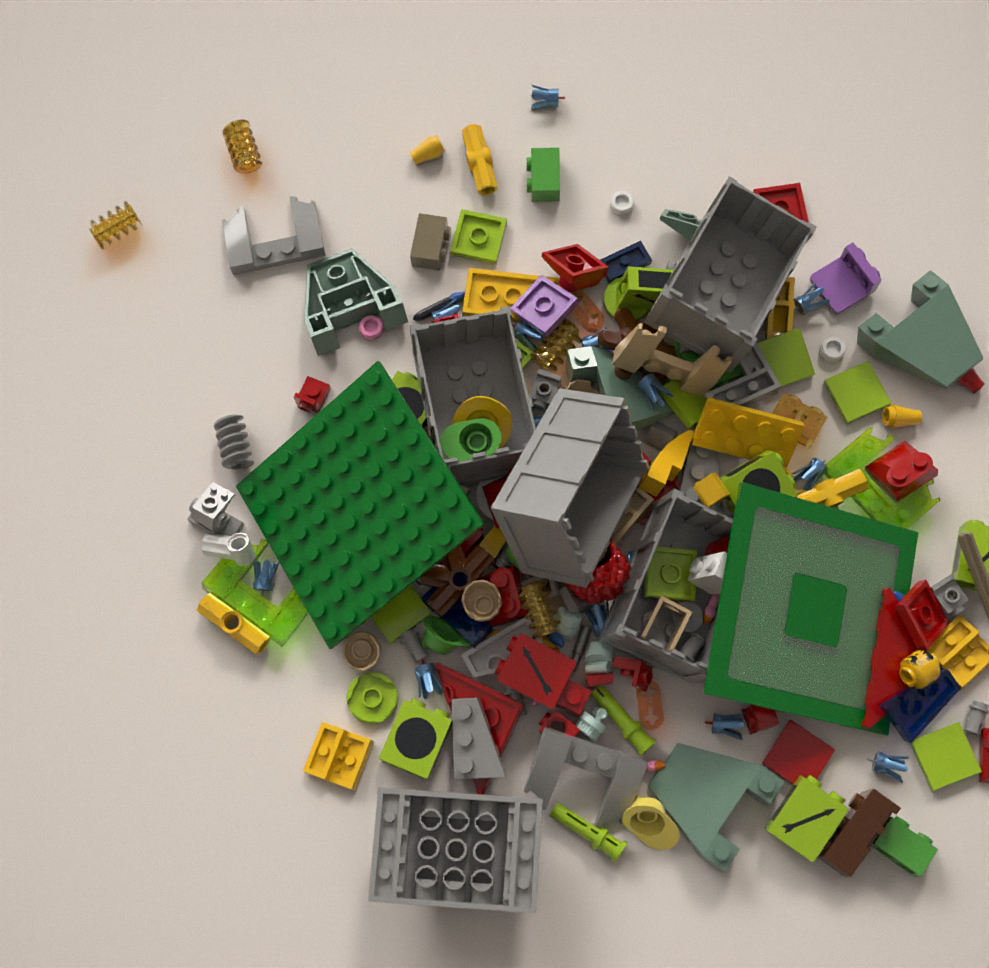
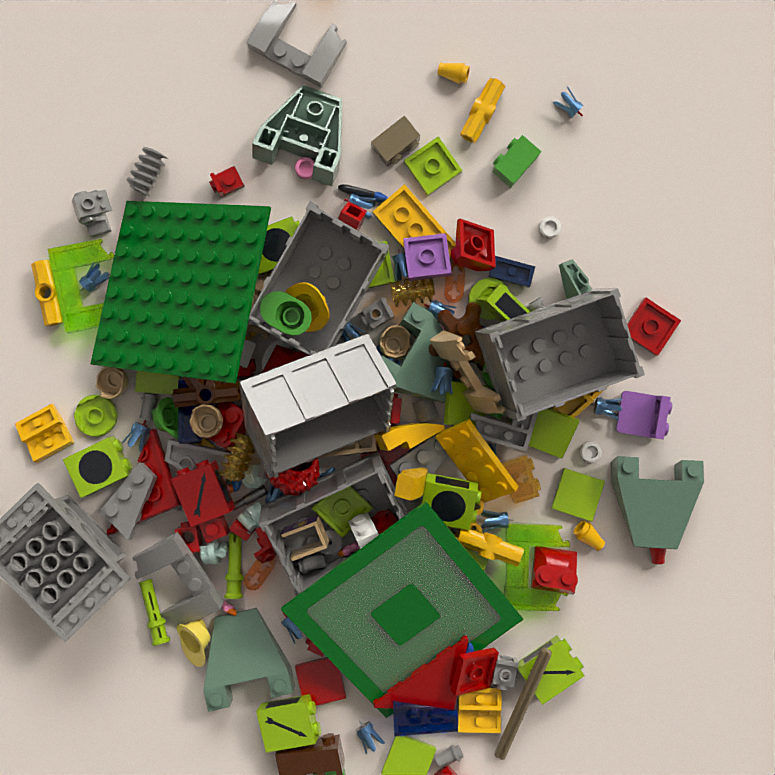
camera: 35 degrees right, 15 degrees up
(229, 547) = (82, 241): white piece -> none
(919, 669) = (439, 702): yellow head -> none

